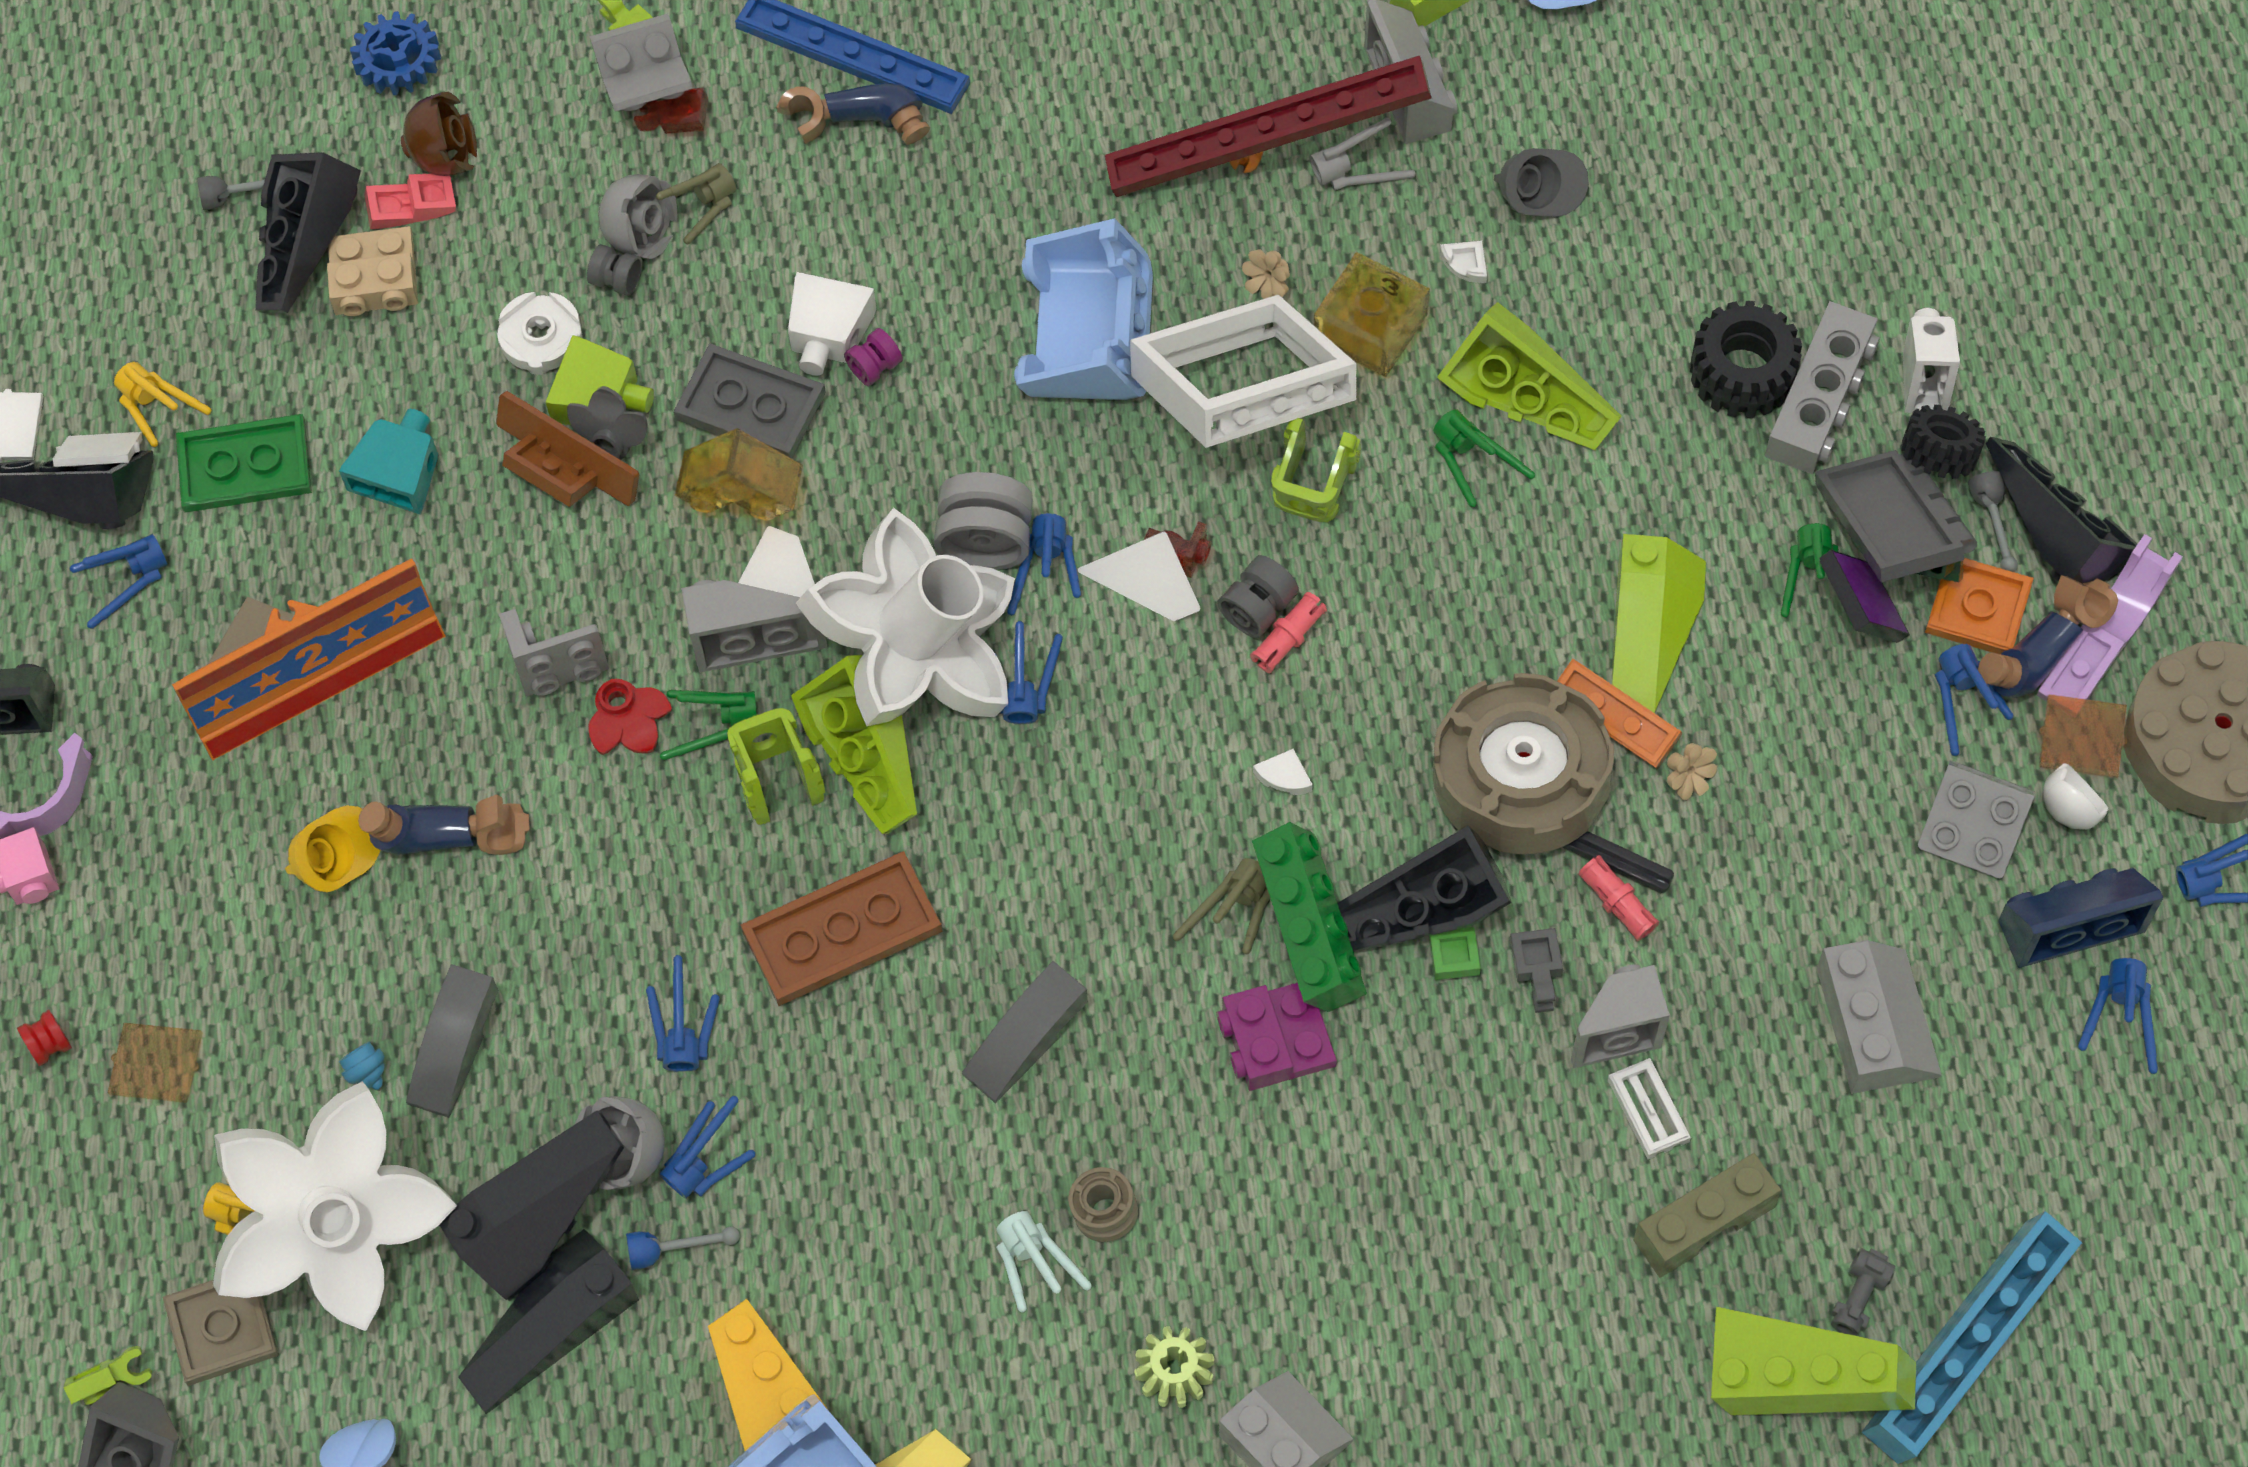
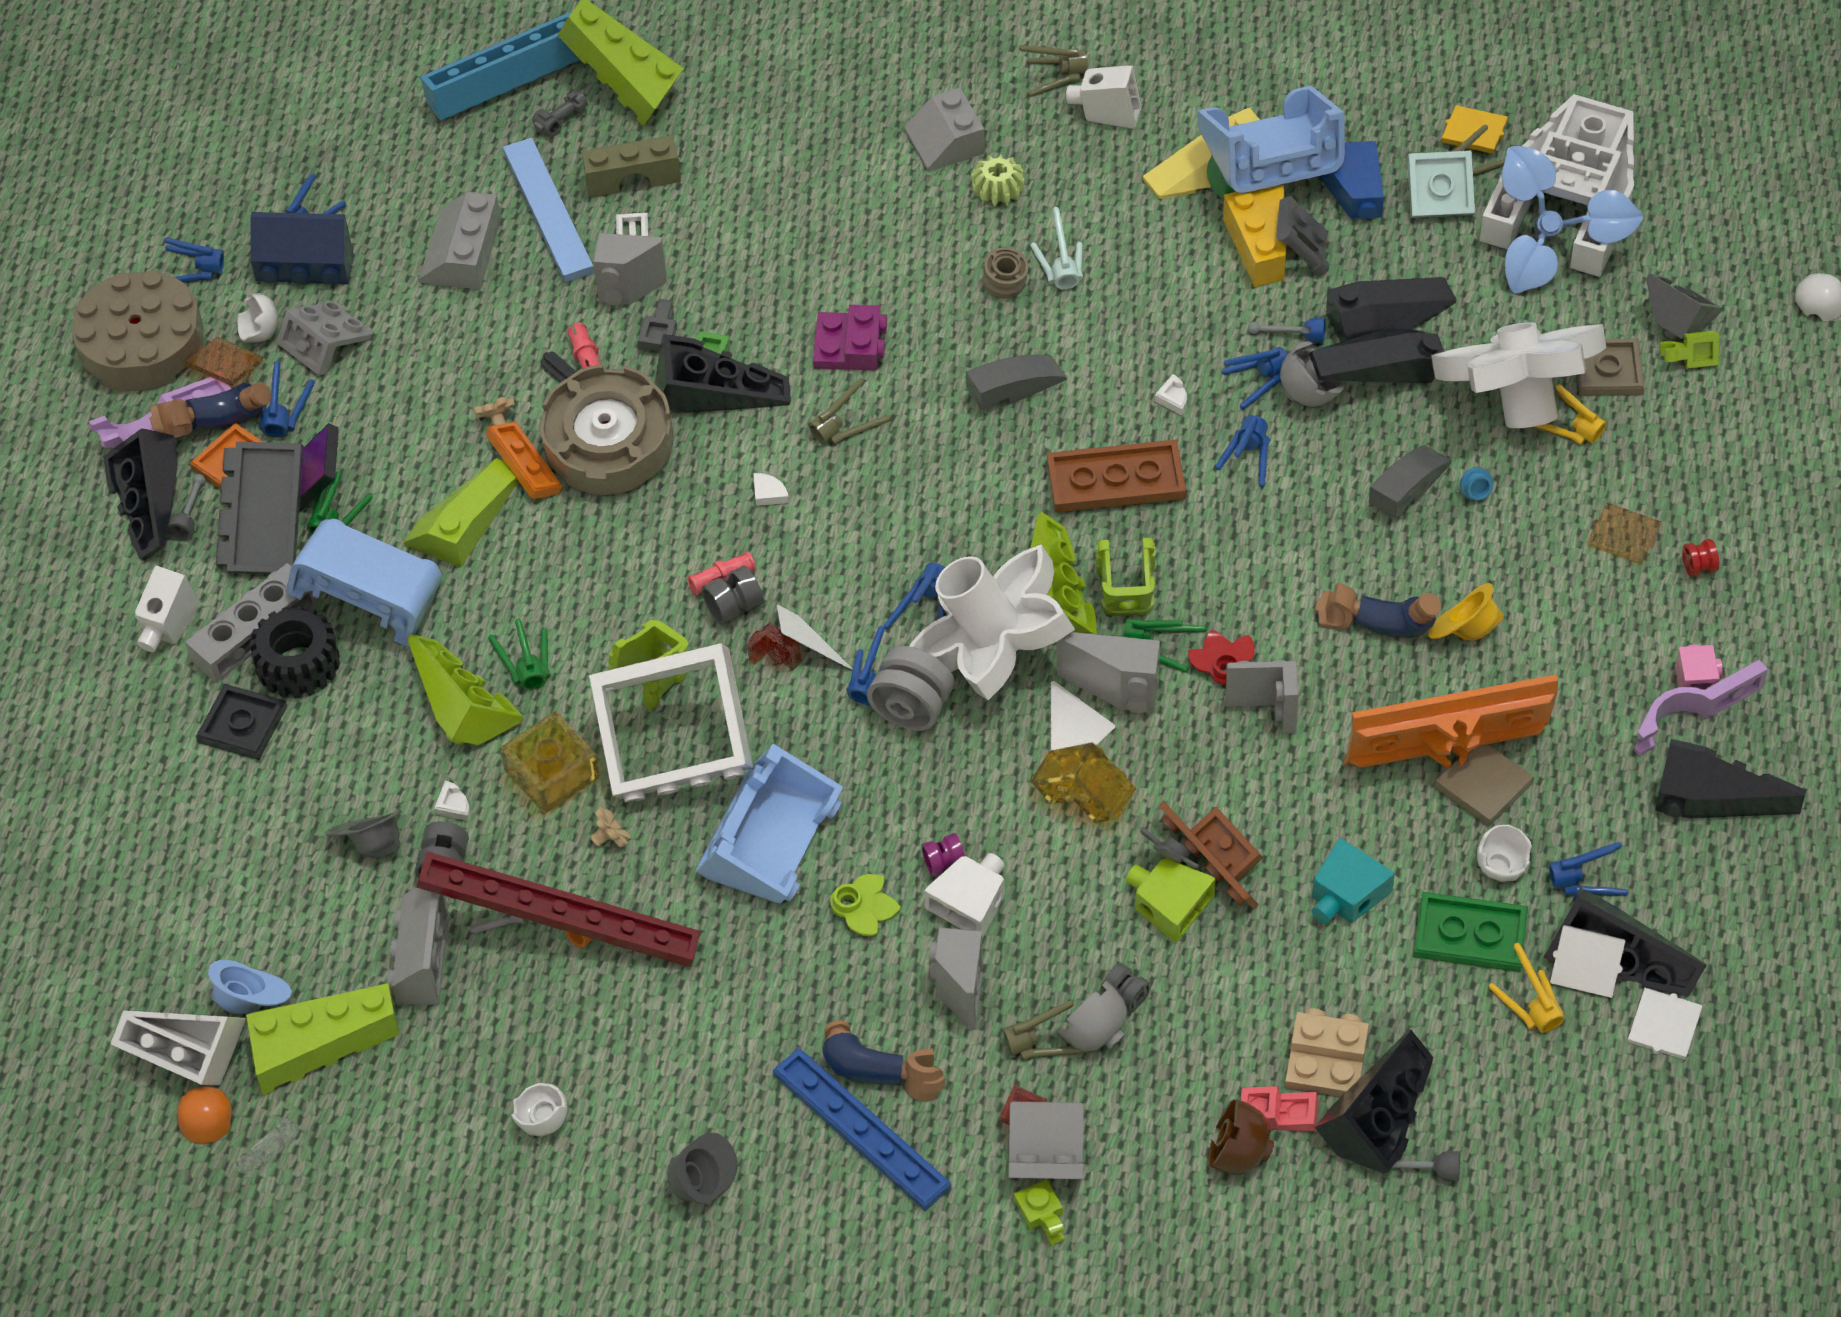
camera: 160 degrees left, 10 degrees down
(220, 549) = (1504, 853): none -> white hair
(395, 53) = (1239, 1246): blue gear -> none
(528, 311) = (1197, 977): white plate -> none
(706, 1394) = (1302, 234): none -> dark grey plate
(751, 396) = (1053, 852): dark grey plate -> none
(801, 208) = (958, 971): none -> light grey slope
(808, 1088) = (1172, 395): none -> white tile
(939, 283) = (868, 907): none -> lime plate
(1309, 917) = (796, 385): green brick -> none
(1440, 180) = (442, 839): none -> dark grey wheel
(1707, 443) = (366, 575): none -> light blue windscreen
(1765, 273) = (241, 721): none -> black tile
(1793, 1123) = (548, 210): none -> light blue tile
(1943, 441) = (209, 556): black tyre -> none

